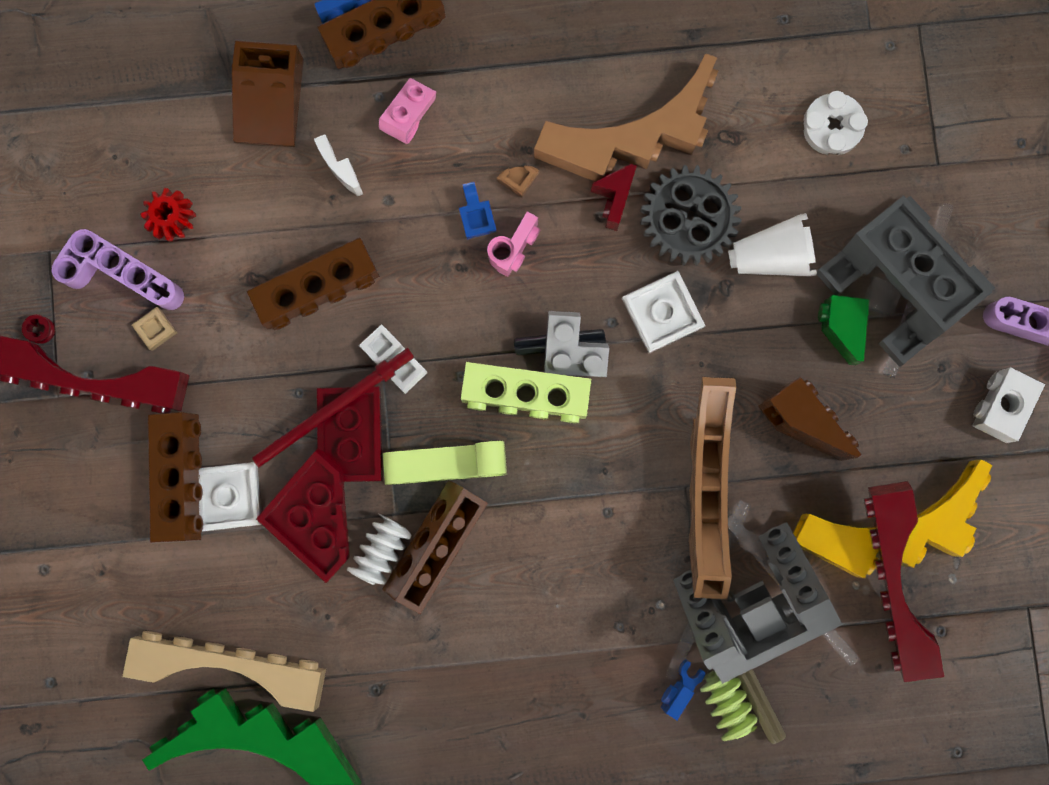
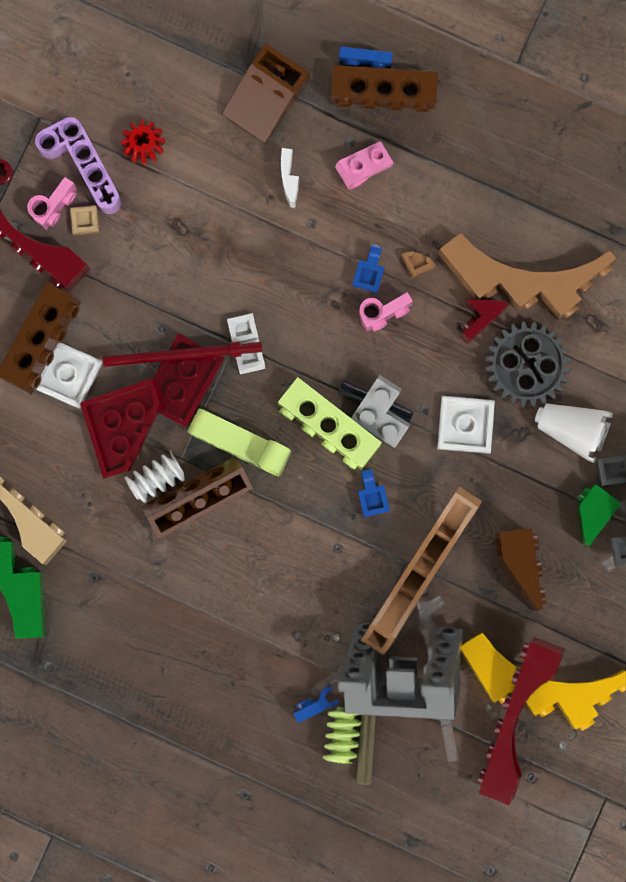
camera: 30 degrees right, 0 degrees up
(115, 317) = (63, 195): none -> bright pink plate
(267, 296) = (181, 244): reddish brown brick -> none
(614, 440) = (373, 498): none -> blue plate

